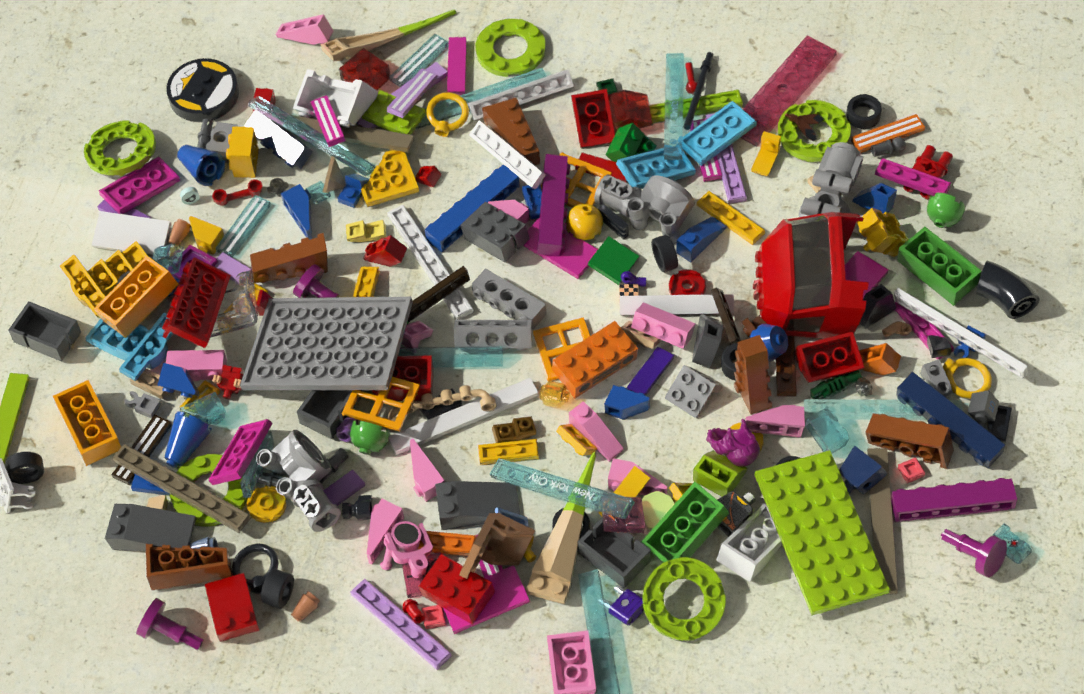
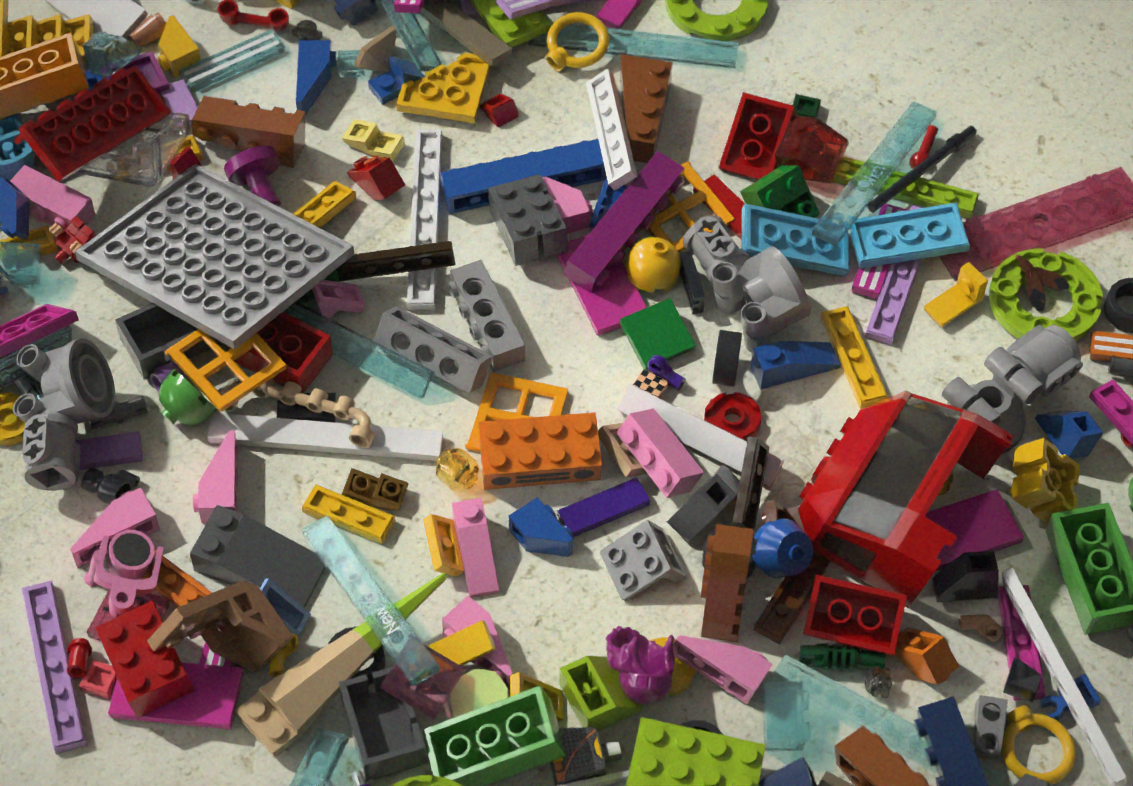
camera: 25 degrees right, 0 degrees up
(524, 92) = (695, 63): white plate -> none

